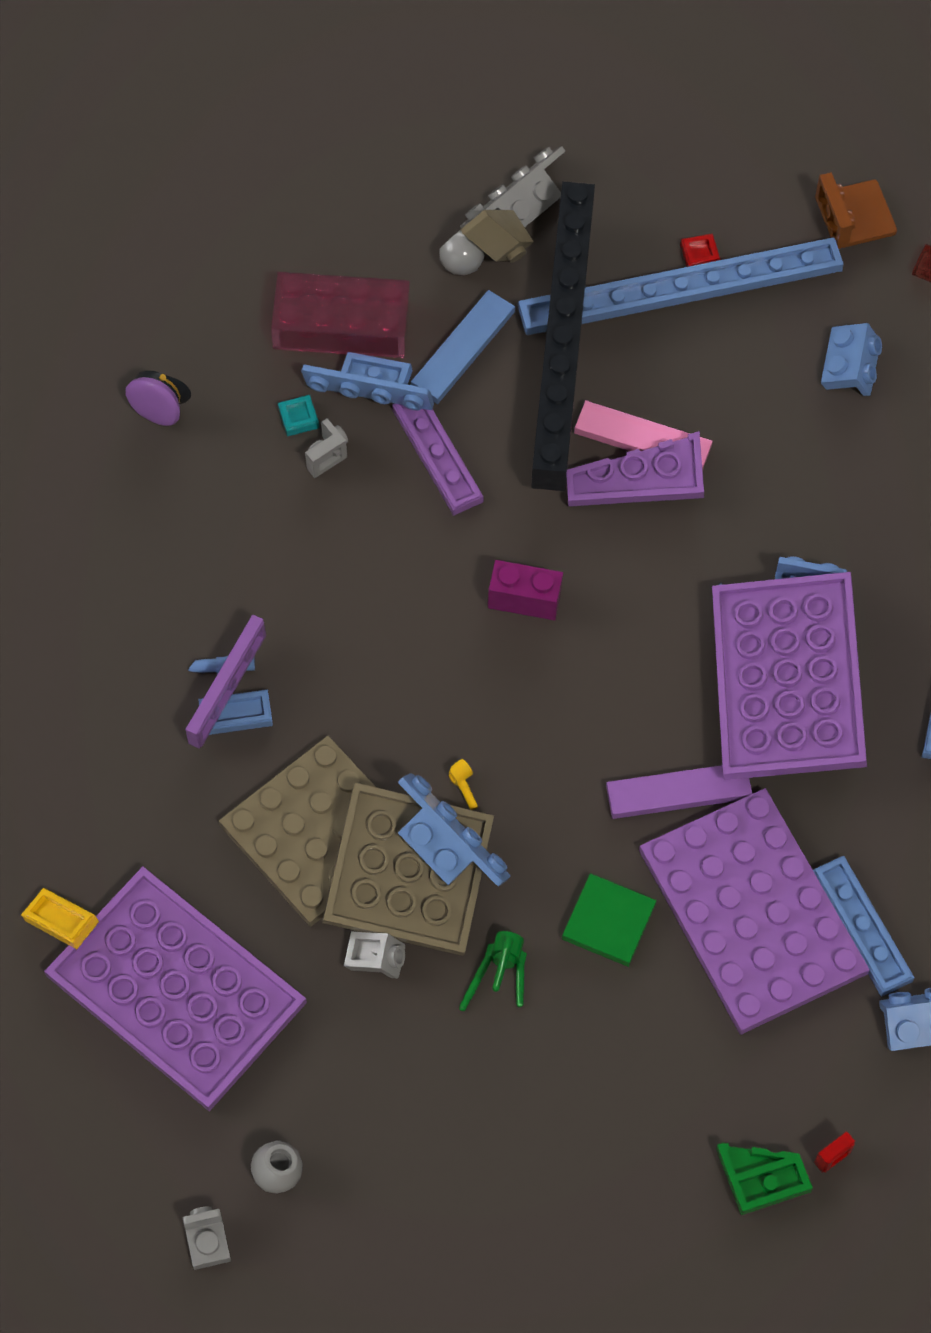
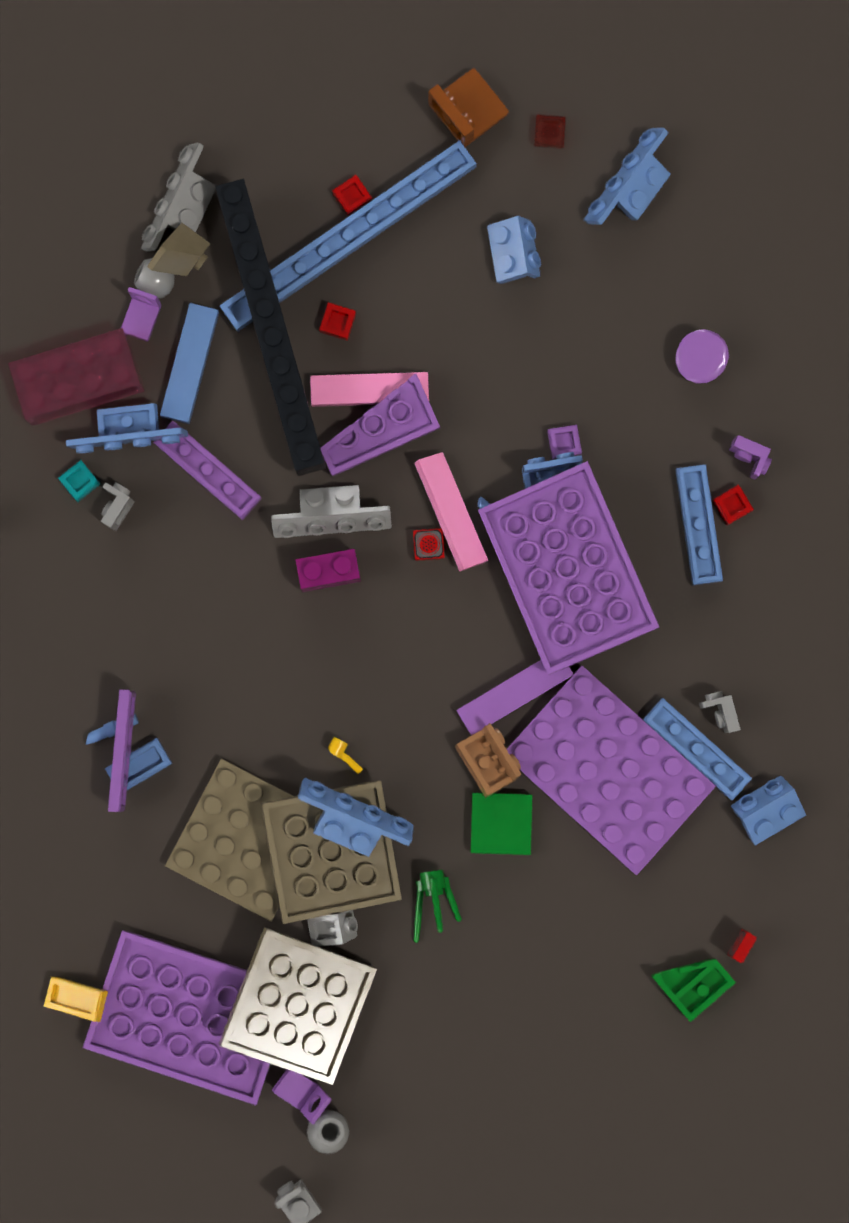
camera: 25 degrees left, 20 degrees up
(262, 1113) = (302, 1094): none -> medium lavender bracket
(302, 1015) = (297, 1006): none -> plate
(435, 280) = (141, 314): none -> medium lavender bracket
(551, 539) = (330, 512): none -> light grey bracket
(622, 844) = (489, 760): none -> medium nougat bracket
(636, 362) = (337, 321): none -> red tile
(644, 608) = (428, 544): none -> tile
(682, 583) = (451, 511): none -> bright pink tile
(835, 554) = (564, 440): none -> medium lavender tile
(908, 893) = (726, 714): none -> light grey bracket

